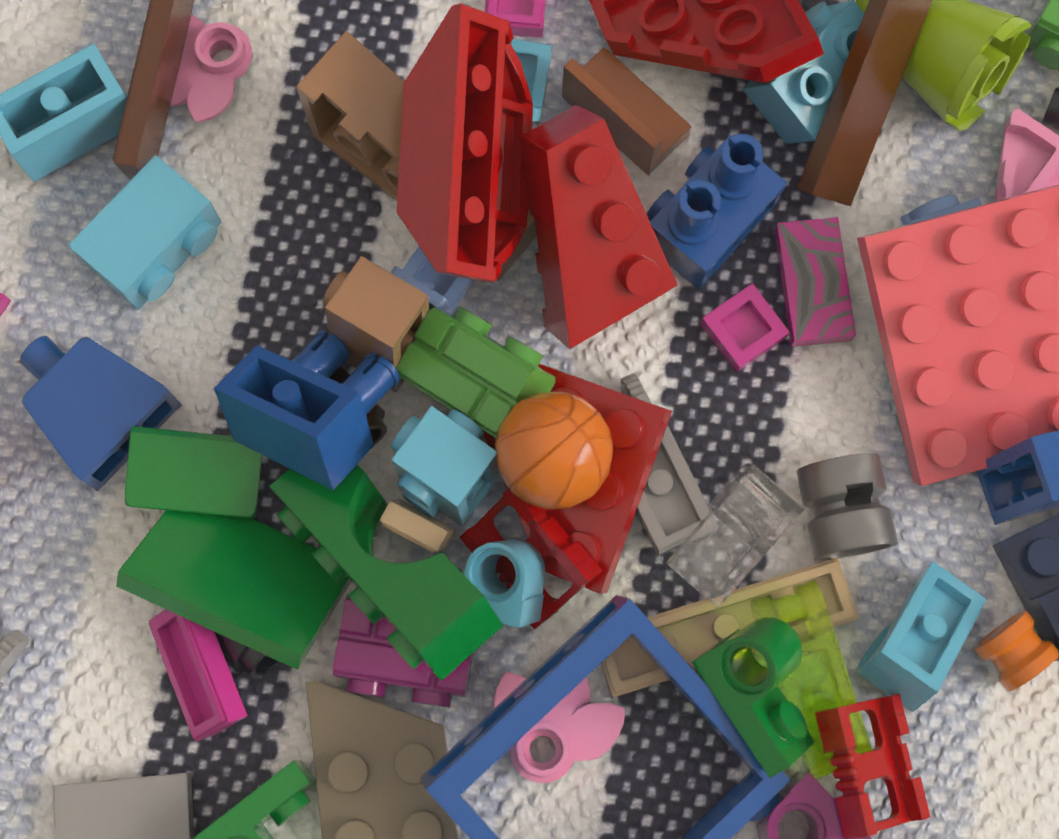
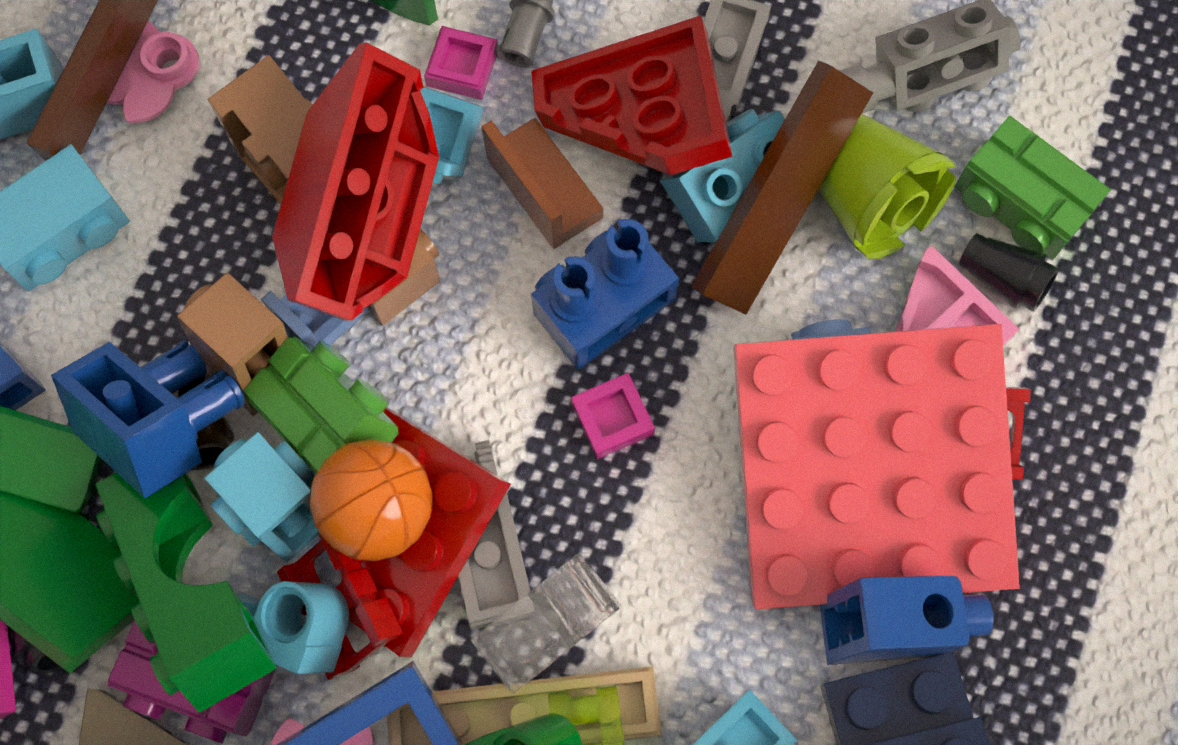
camera: 15 degrees right, 5 degrees down
(417, 526) = (235, 553): tan tile -> none
(590, 228) = (468, 289): red wedge -> none
(814, 282) = (693, 383): dark pink tile -> none
(849, 530) = (677, 639): flat silver wheel -> none

